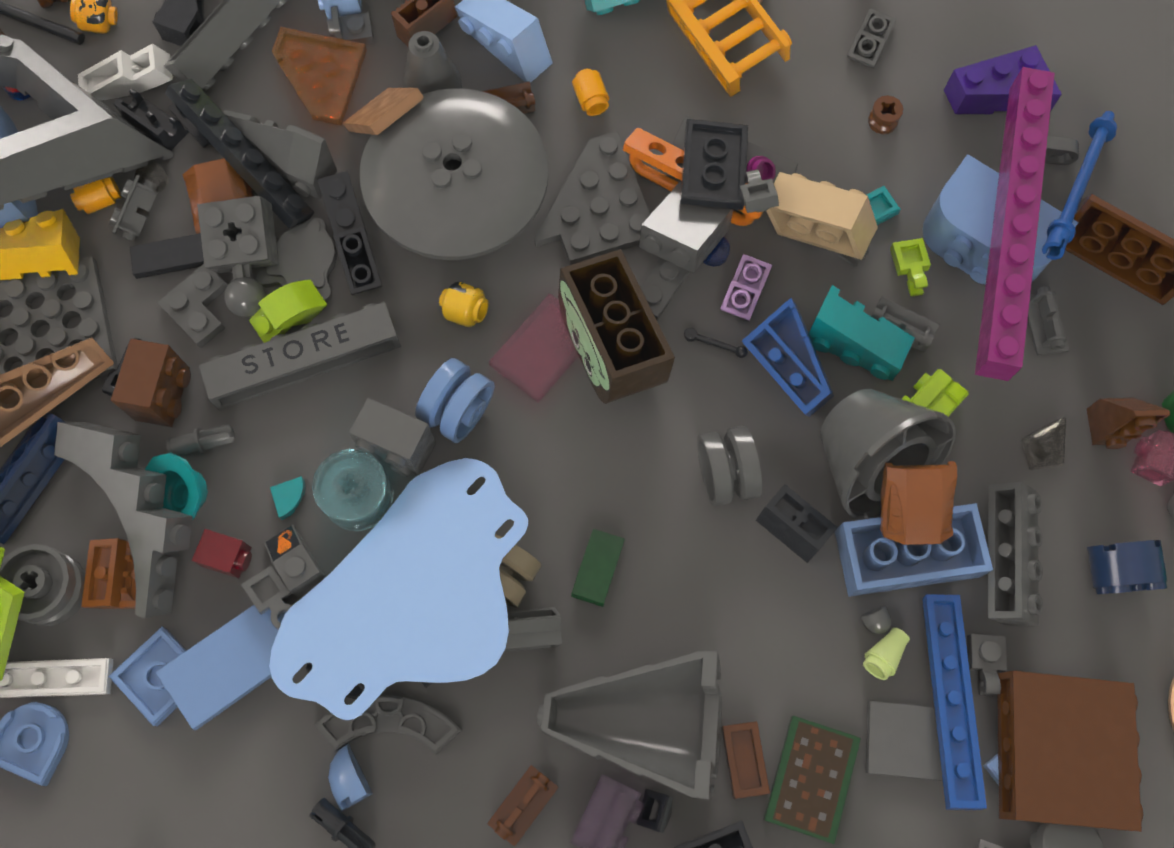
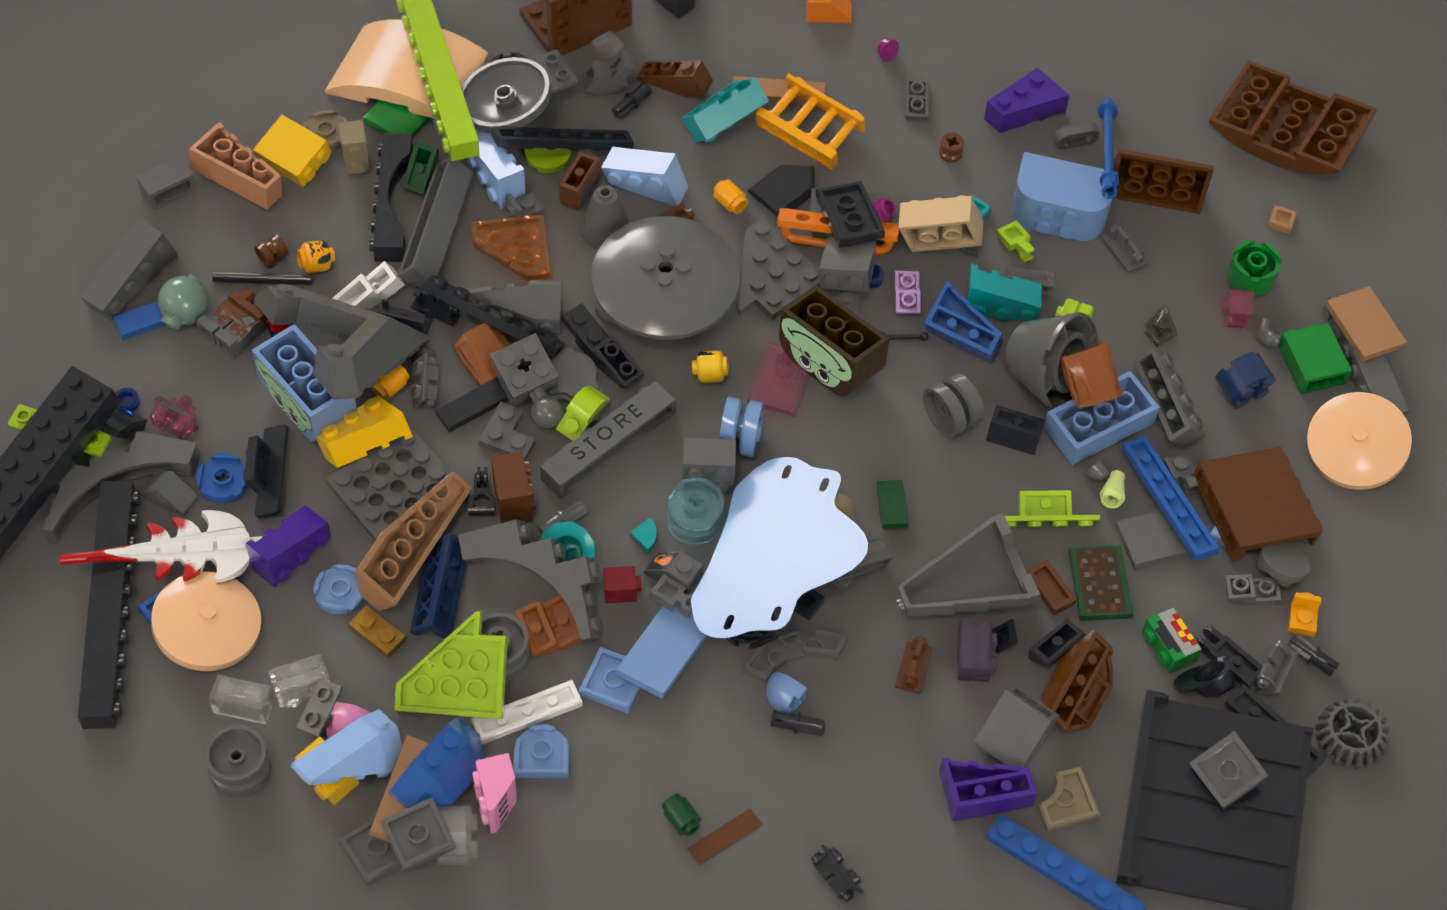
camera: 25 degrees left, 15 degrees down
(383, 110) = (587, 253): medium nougat tile -> none
(663, 101) = (784, 187): none -> black tile
(758, 194) = (893, 221): dark grey plate -> none
(787, 650) = (1048, 506): none -> lime bracket
(1015, 226) = (1077, 184): magenta brick -> none
(1120, 420) = (1202, 291): reddish brown slope -> none

